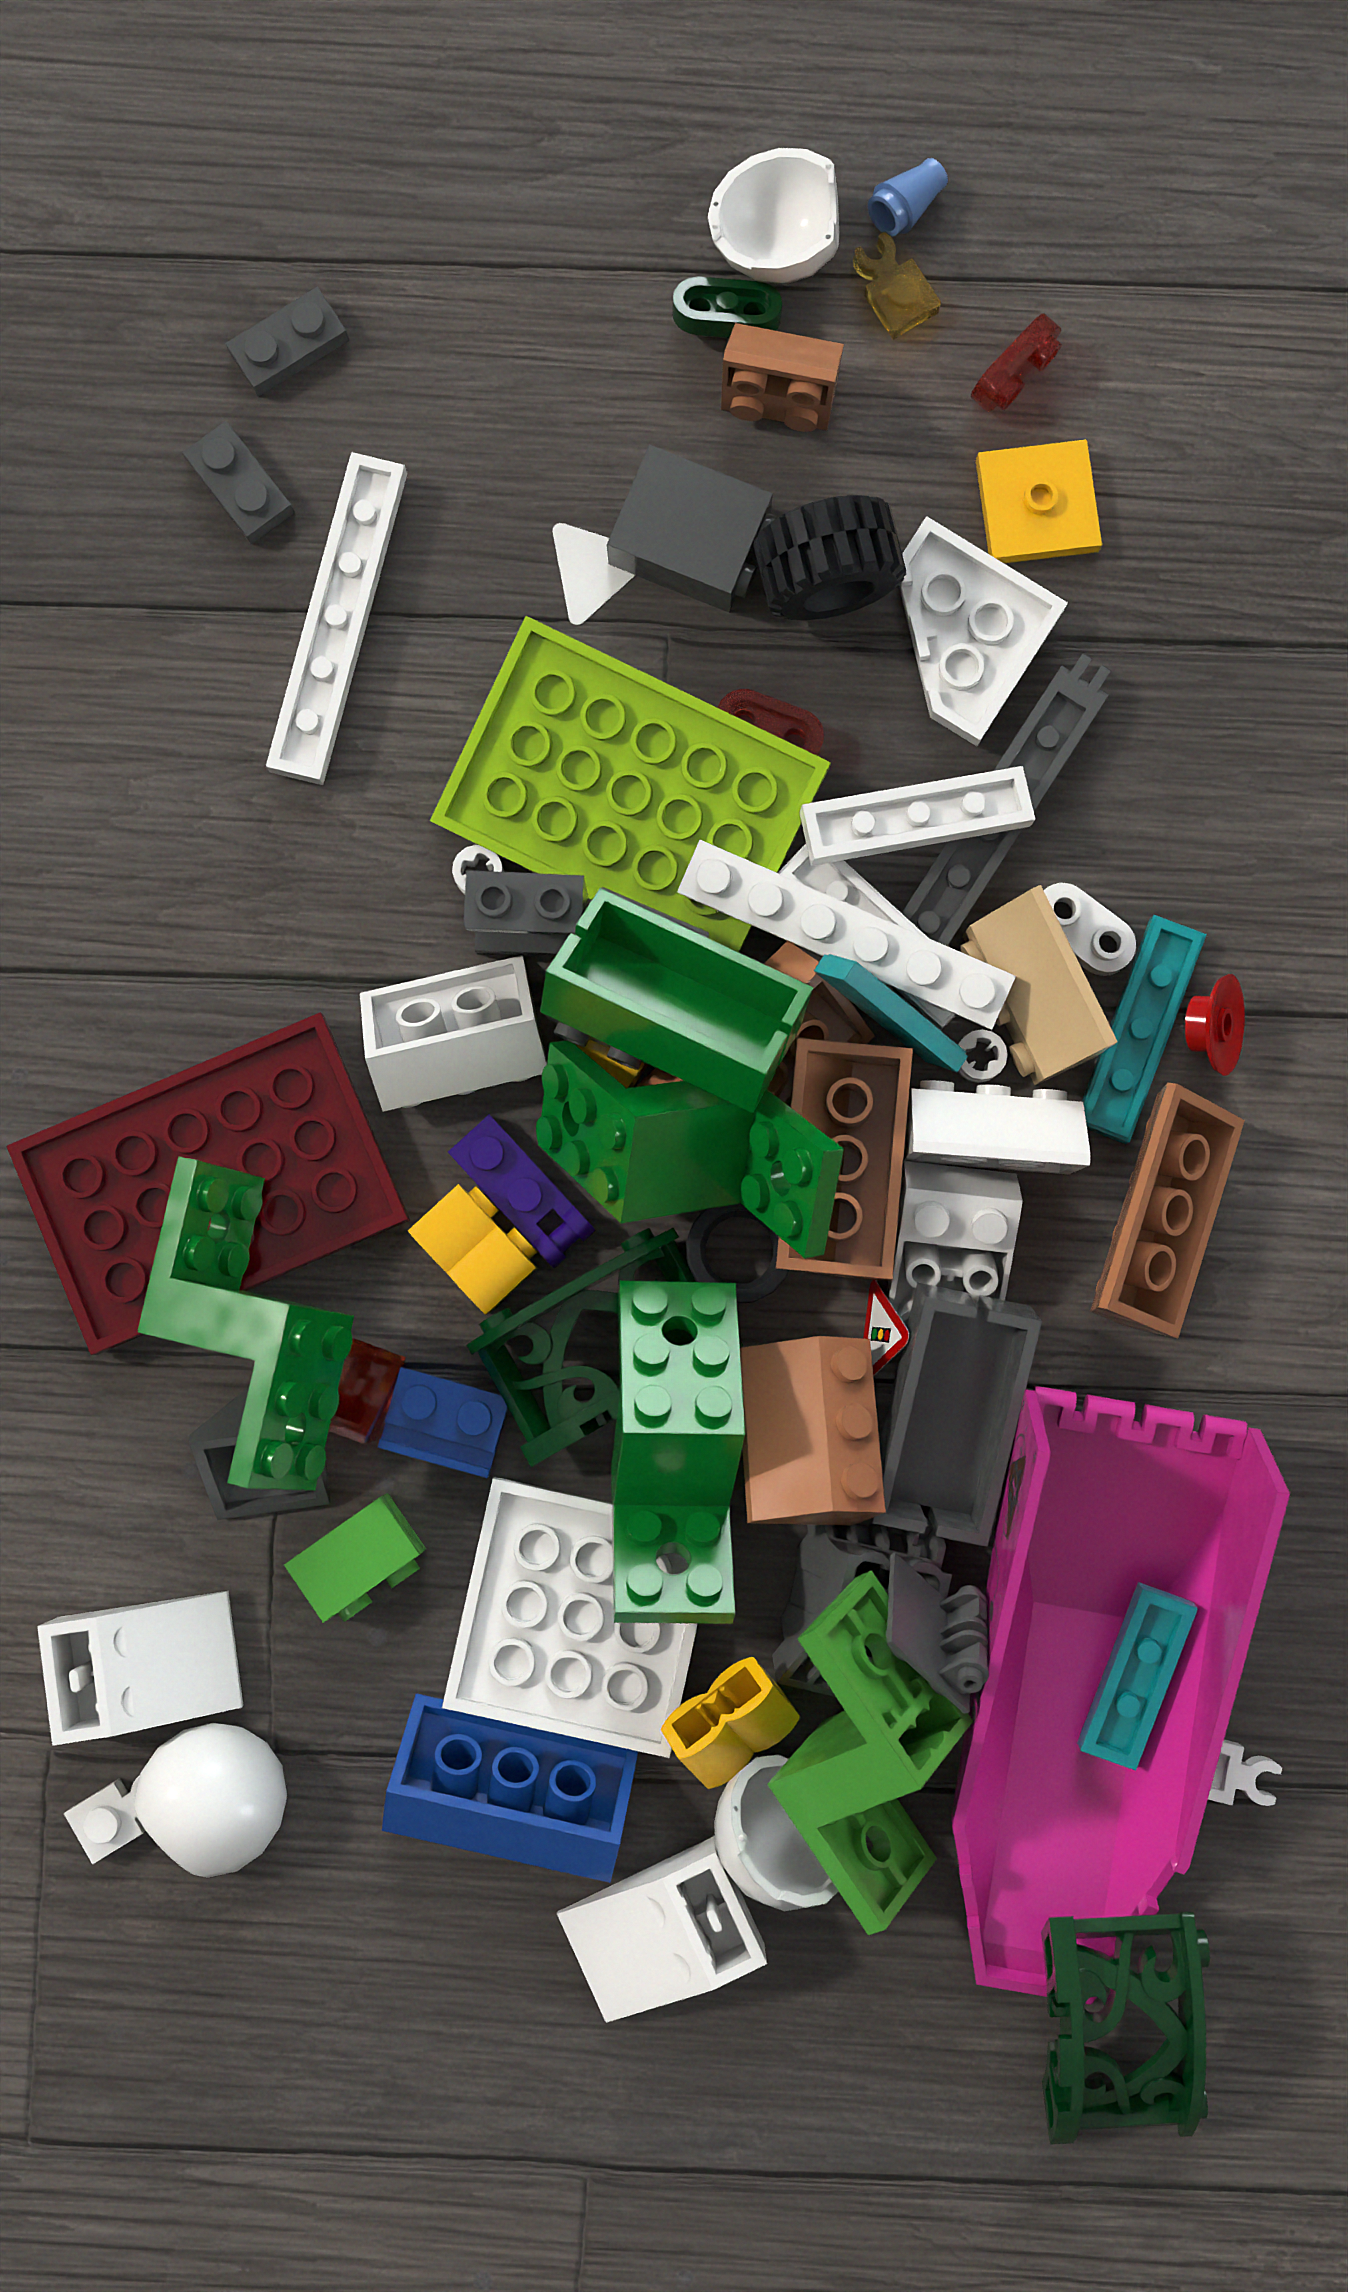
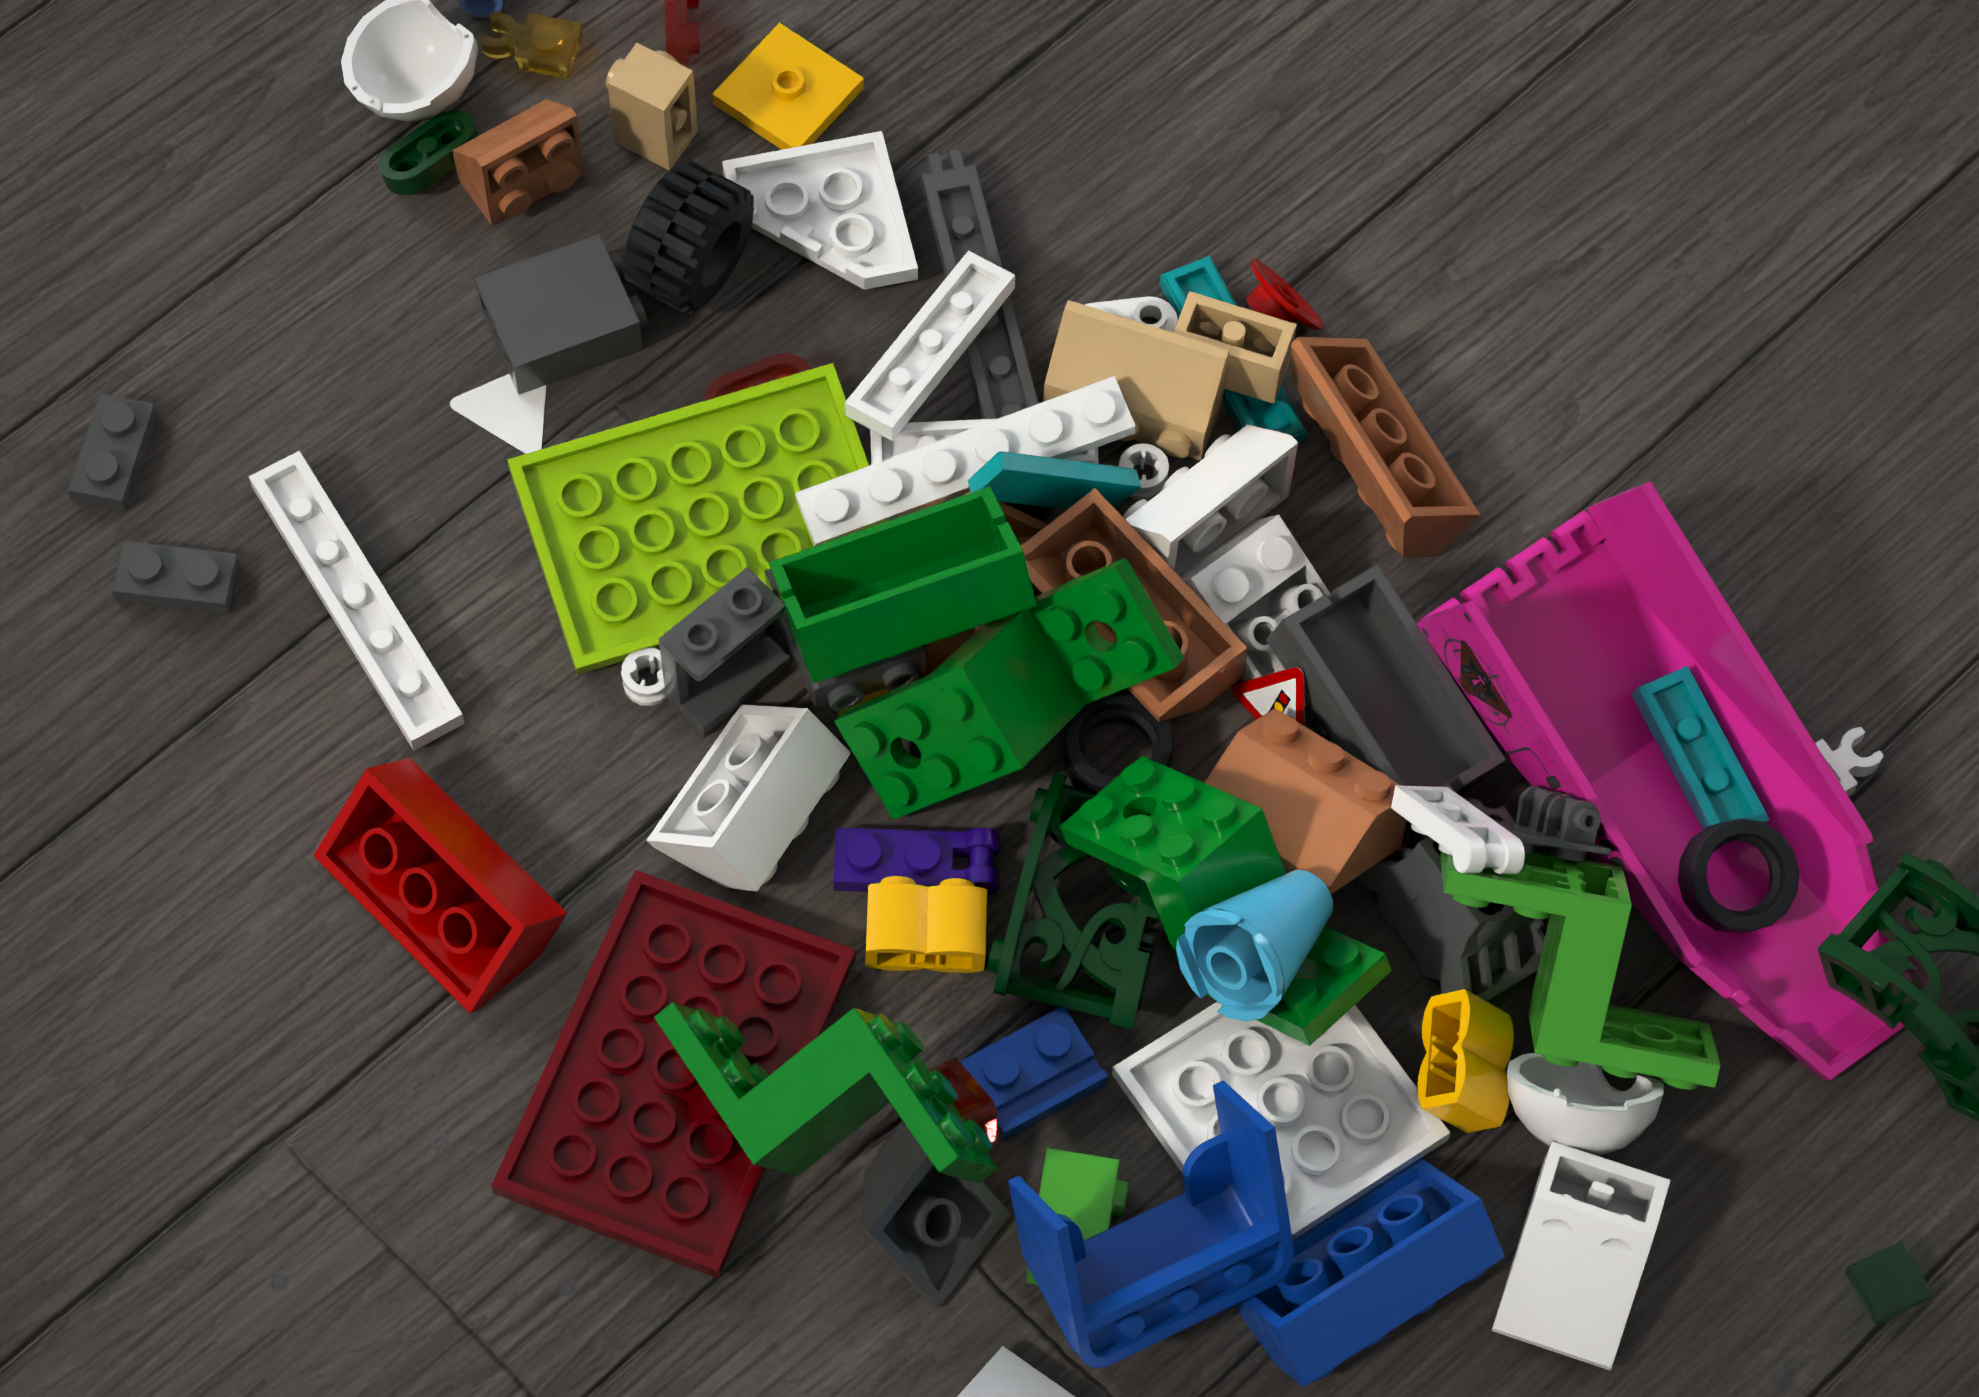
camera: 50 degrees left, 20 degrees down
(187, 889) = (438, 882): none -> red slope
(370, 1658) = (1175, 1260): none -> blue windscreen
(653, 1519) = (1254, 943): none -> medium azure cone
(858, 2159) = (1888, 1282): none -> clear green tile
(868, 1594) = (1459, 829): none -> white plate
(916, 421) = (652, 105): none -> tan brick
(1058, 1832) = (1780, 862): none -> black tyre
(1147, 1044) = (1255, 341): none -> tan brick

